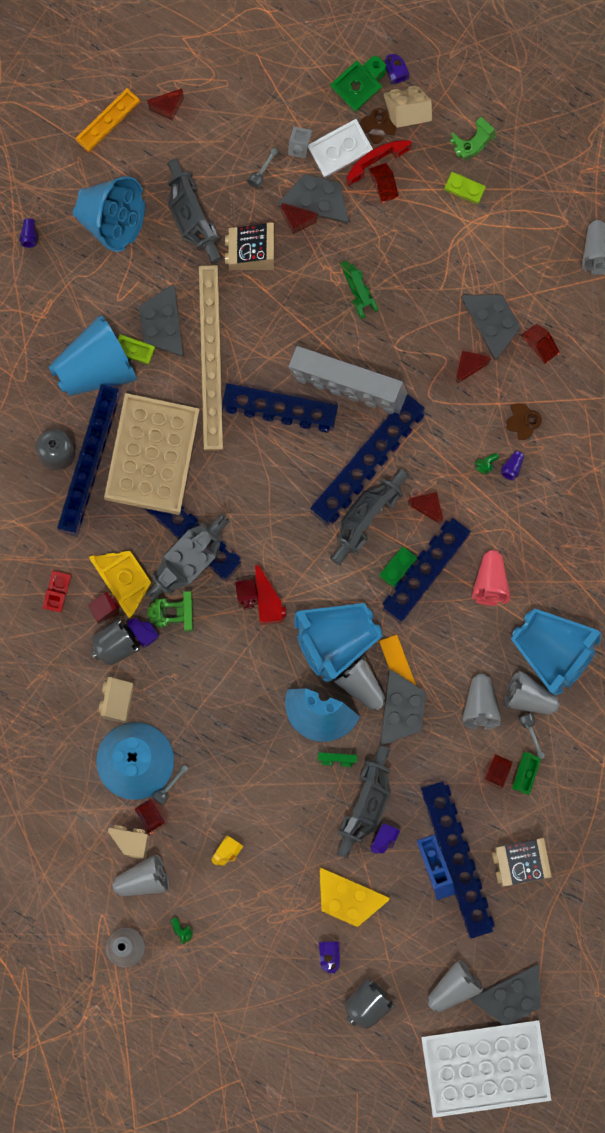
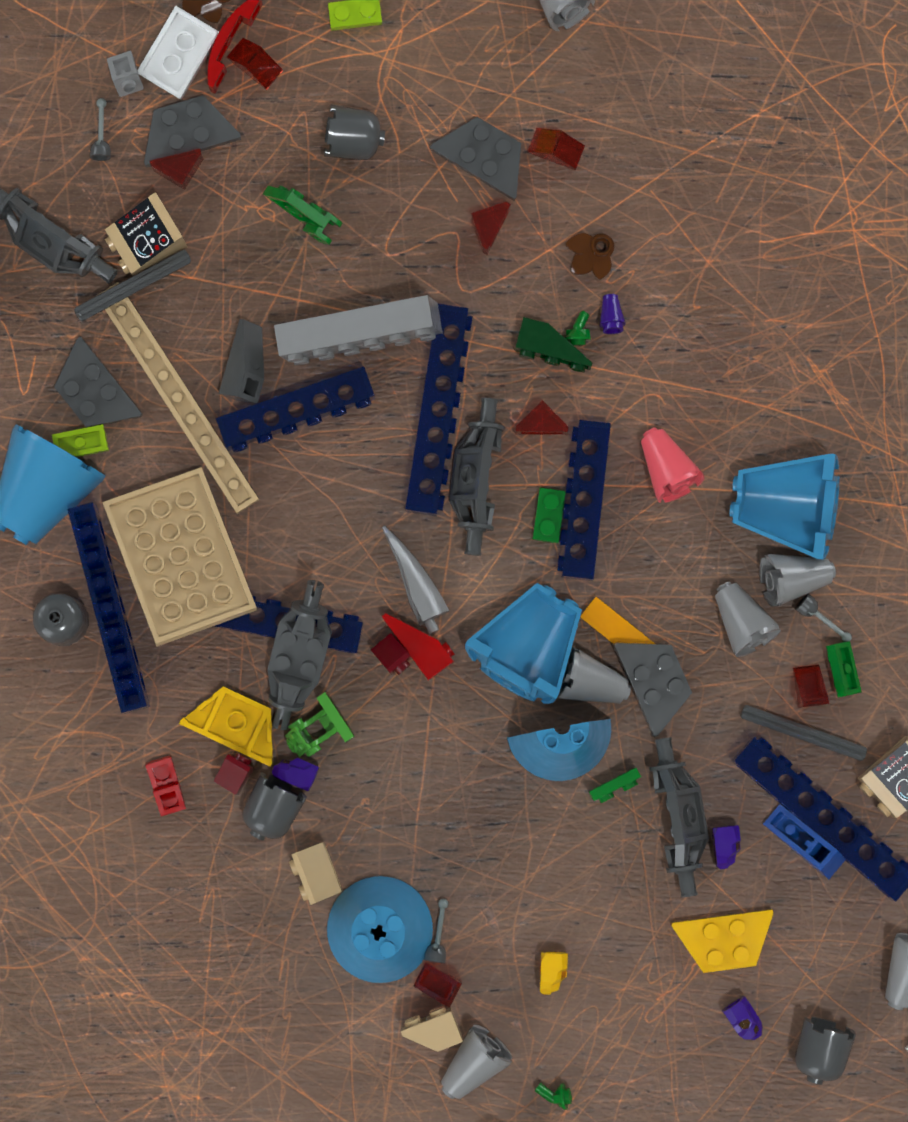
camera: 30 degrees left, 5 degrees up
(225, 272) = (132, 285): none -> dark grey axle
(264, 362) = (245, 365): none -> dark grey slope
(289, 567) = (421, 591): none -> light grey piece
(418, 259) = (353, 133): none -> dark grey cylinder
(459, 456) = (543, 341): none -> dark green slope
(477, 799) = (803, 732): none -> dark grey axle

